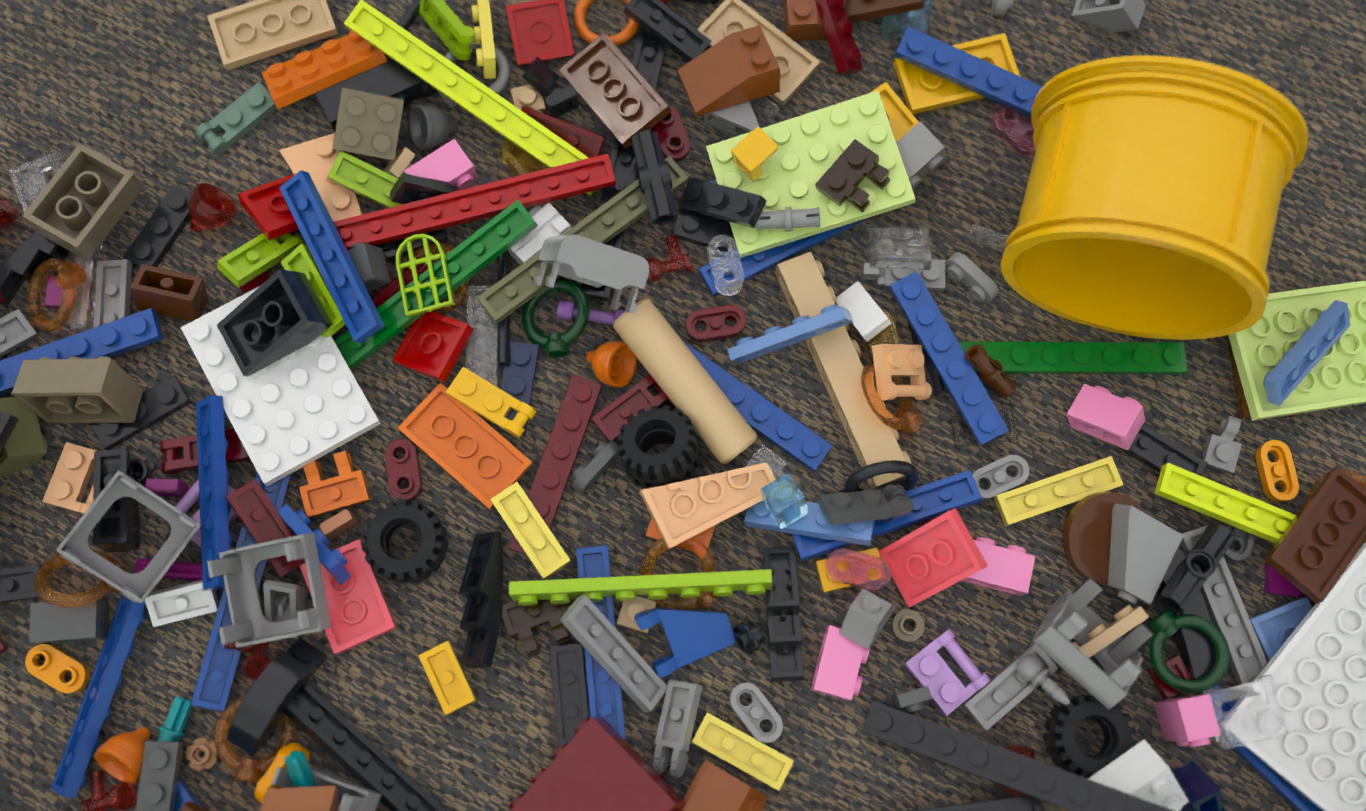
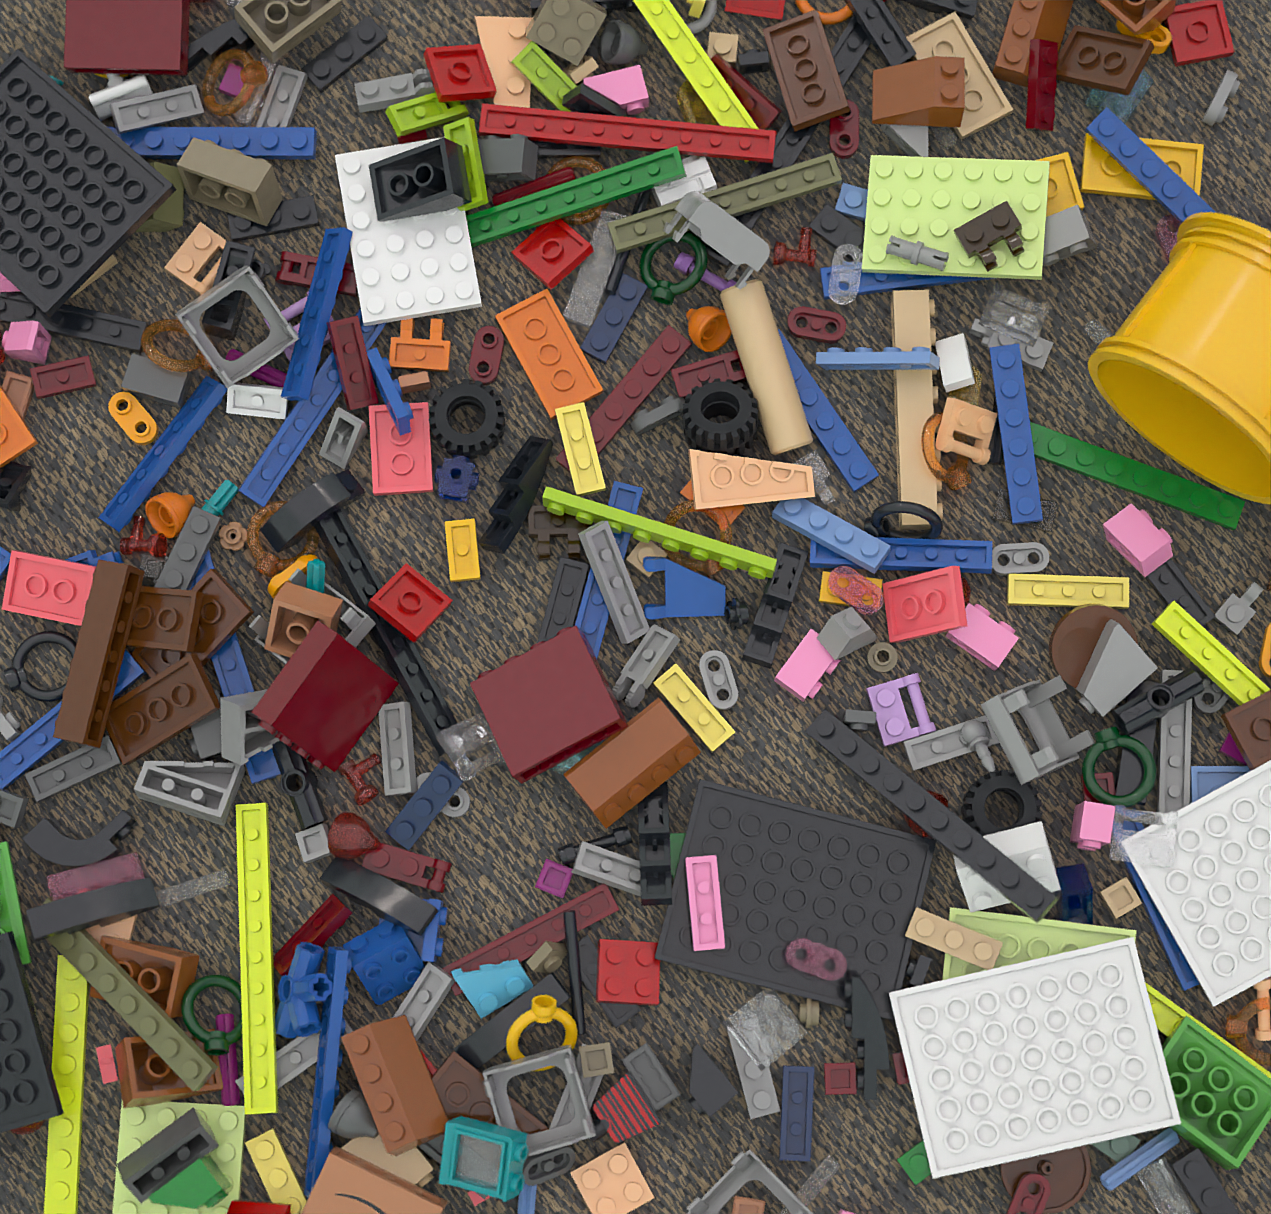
camera: 25 degrees right, 5 degrees up
(167, 487) = (280, 296): magenta tile -> none
(169, 293) = (334, 119): reddish brown brick -> none
(204, 256) = (392, 90): none -> light grey hinge
(210, 207) = (395, 50): clear red helmet -> none
(242, 592) = (319, 387): light grey piece -> none
(254, 663) = (309, 460): clear red piece -> none
(331, 257) = (491, 138): blue plate -> none
(410, 755) = (410, 602): none -> red plate
(417, 285) = (558, 193): lime window -> none
(423, 615) = (456, 489): none -> clear blue brick
(490, 401) = (585, 322): yellow plate -> none
(540, 76) = (741, 31): black tile -> none
(654, 177) = (809, 169): black piece -> none
(722, 202) = (863, 215): black plate -> none
(753, 152) = (909, 179): yellow panel -> none
(784, 500) = (813, 505): clear light blue brick -> none
(865, 505) = (884, 536): dark grey hinge -> none
(963, 270) = (1075, 380): light grey plate -> none
(990, 371) = (1049, 460): reddish brown pin -> none
(1102, 636) = (1049, 728): tan plate -> none
(1240, 781) = (1120, 898): none -> tan plate

